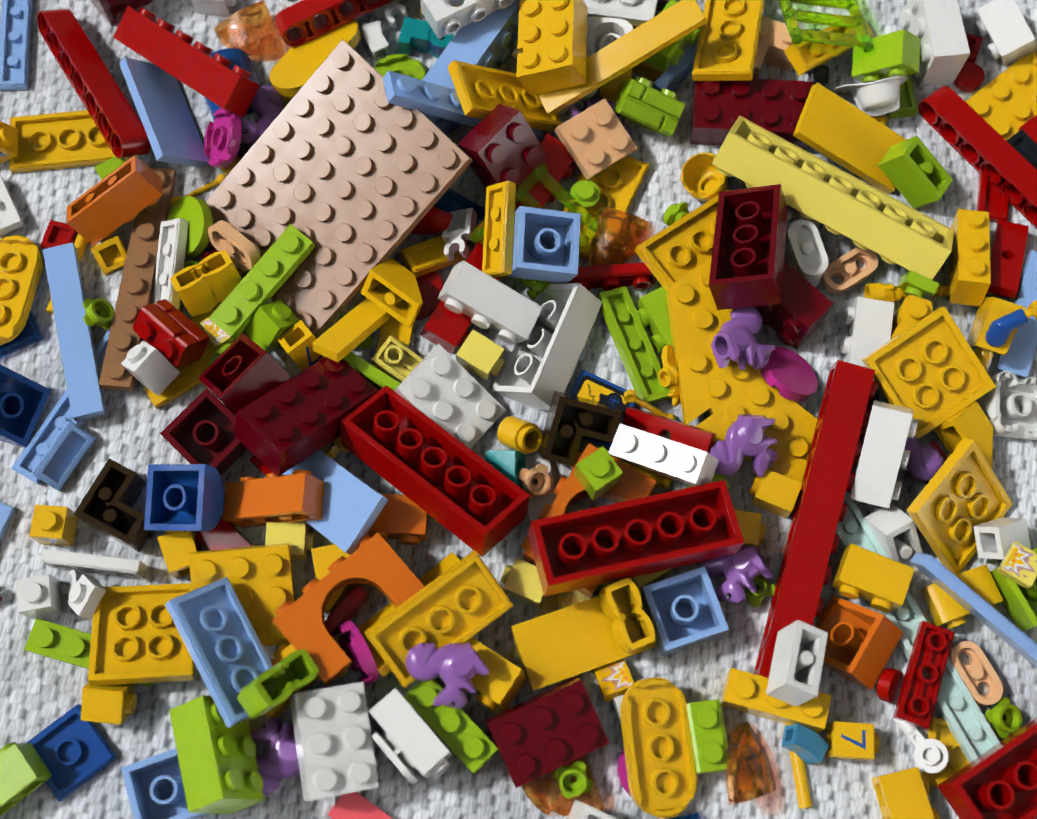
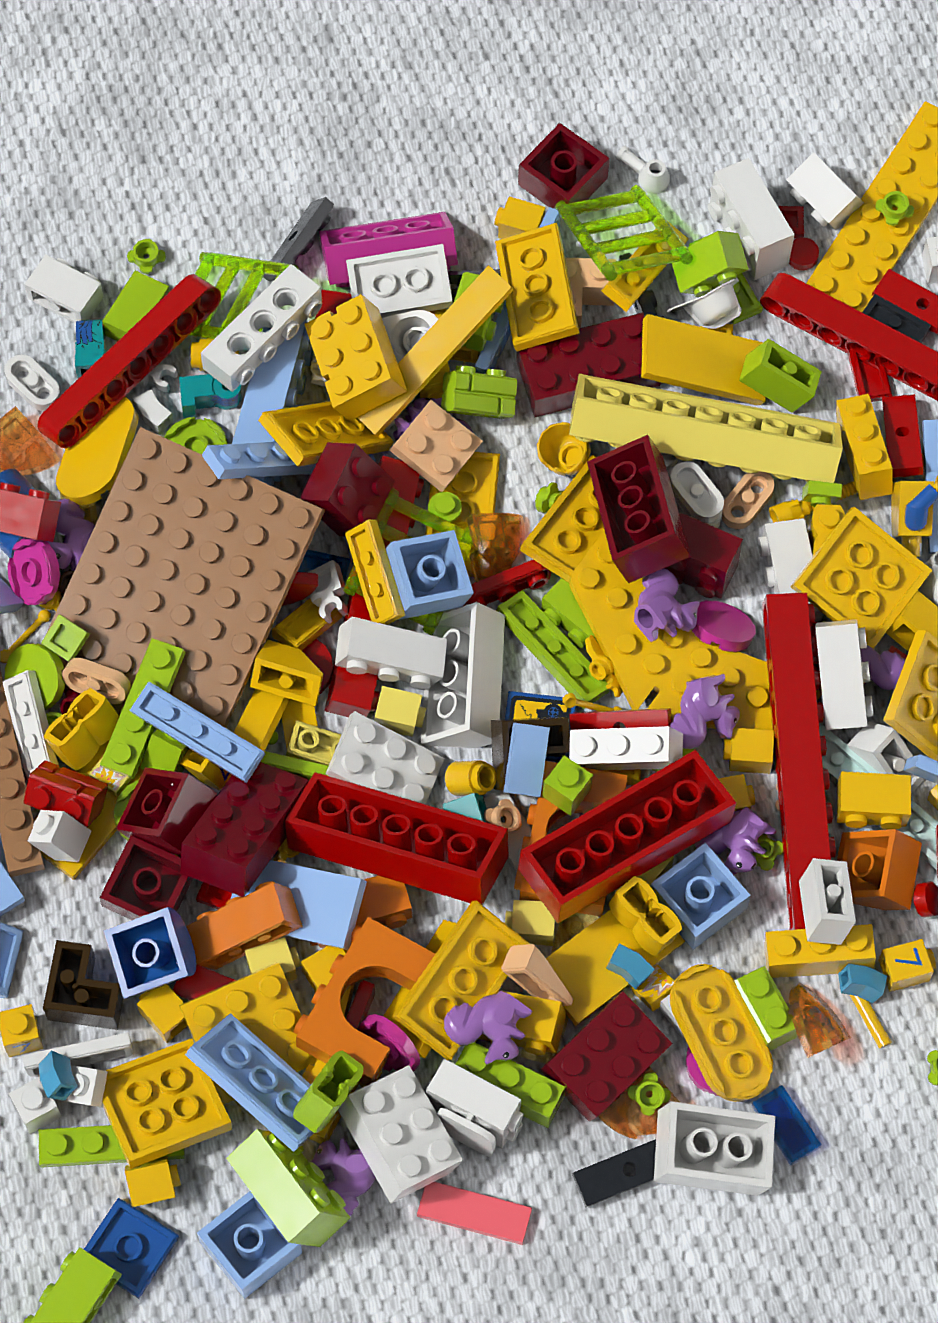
camera: 20 degrees left, 5 degrees down
(61, 579) = (57, 1076): none -> dark azure piece
(221, 201) = (65, 638): none -> lime plate
(295, 318) = (197, 732): none -> light blue tile
(504, 632) = (534, 974): none -> light nougat slope
(570, 437) = (526, 759): none -> light blue tile
(597, 654) = (630, 966): none -> dark azure piece

